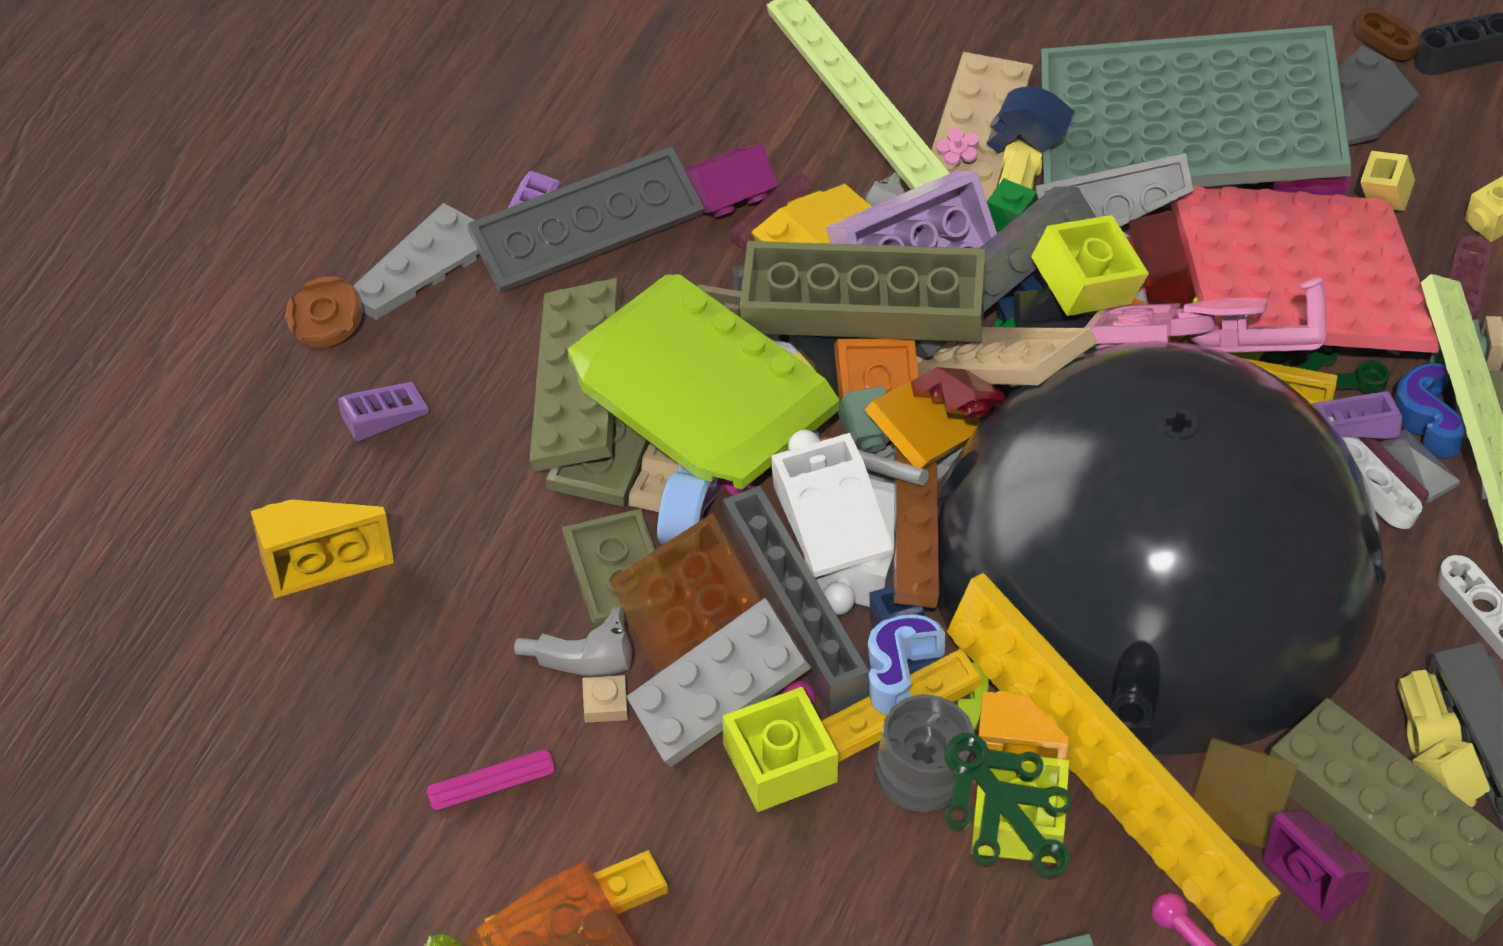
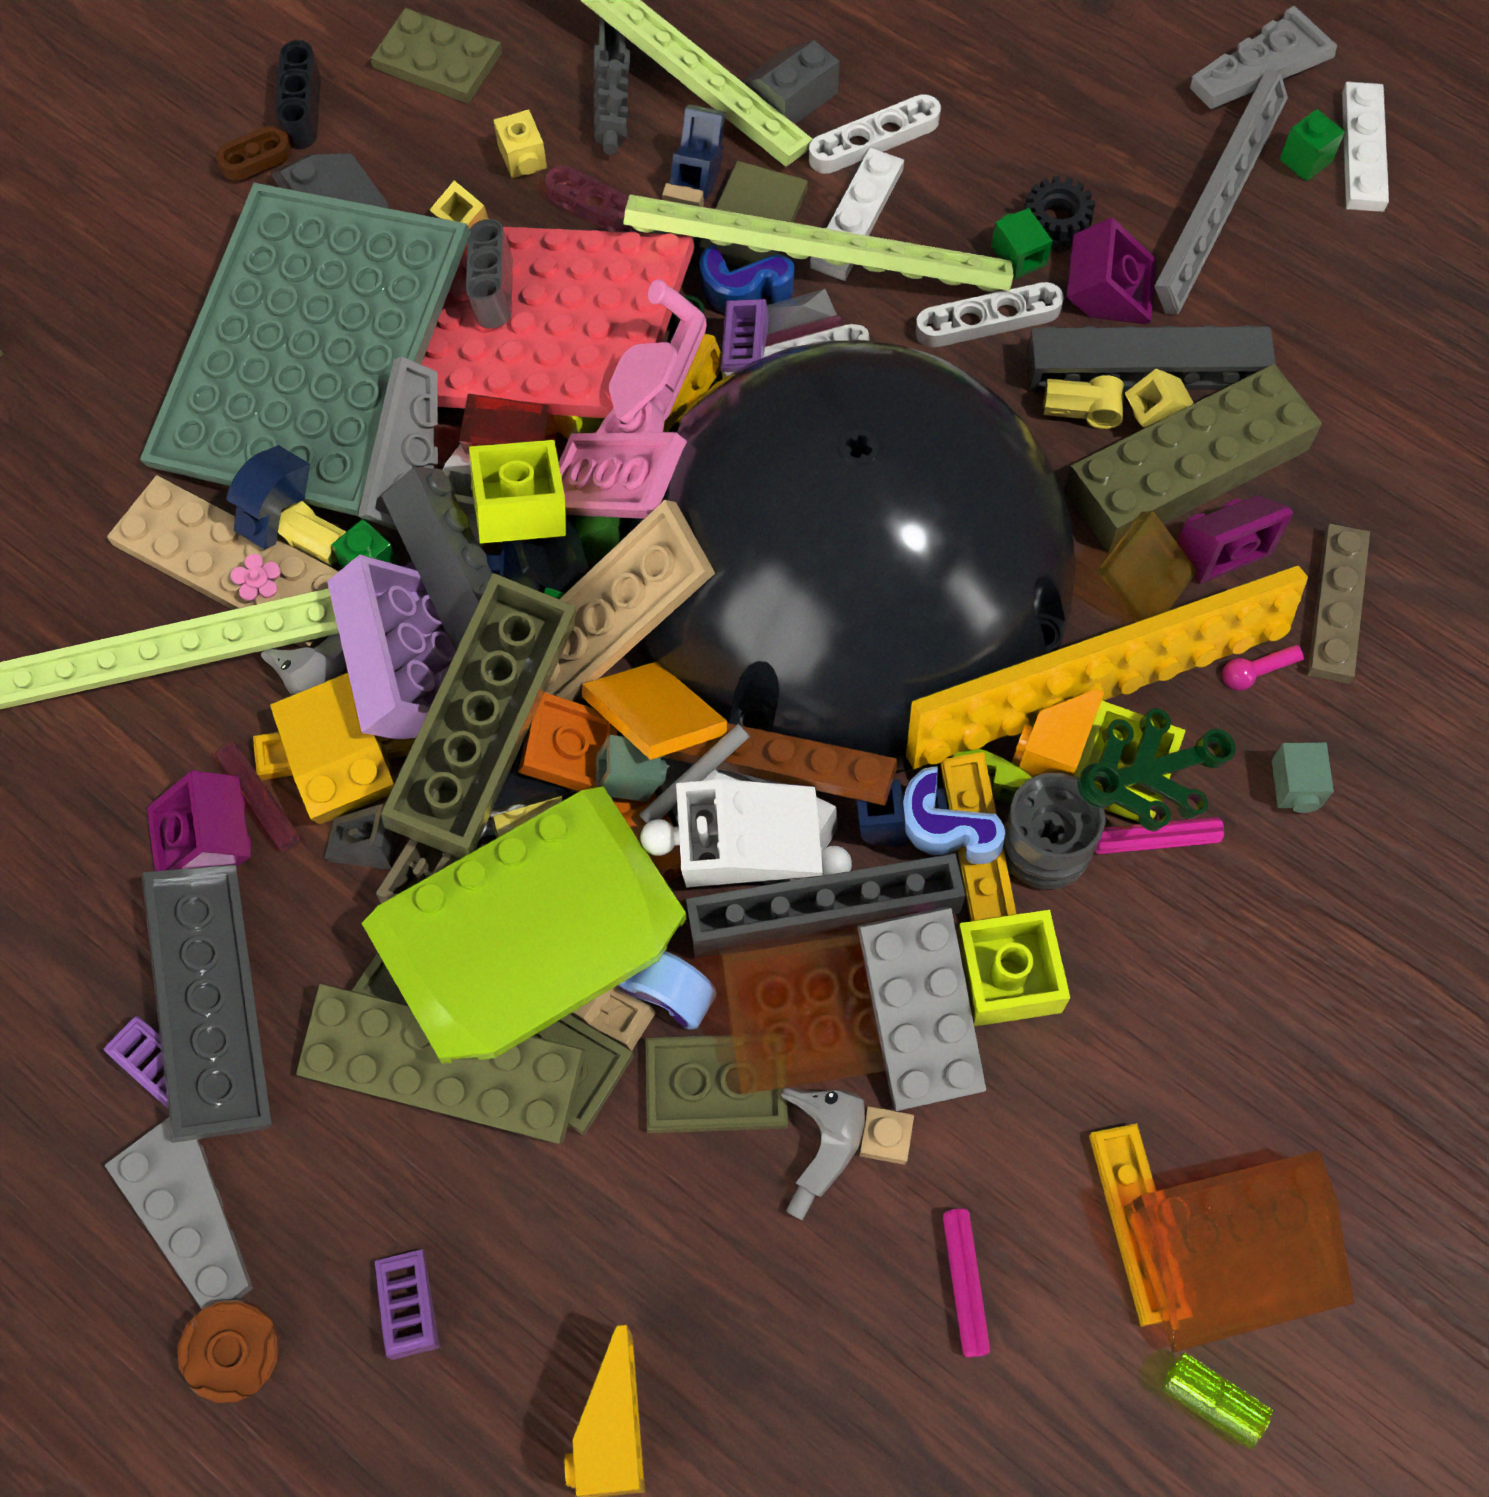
camera: 75 degrees left, 15 degrees up
(959, 390) = (656, 653): dark red slope -> none
(964, 868) = (1171, 835): none -> dark pink axle
(1318, 203) = (489, 274): none -> dark grey beam

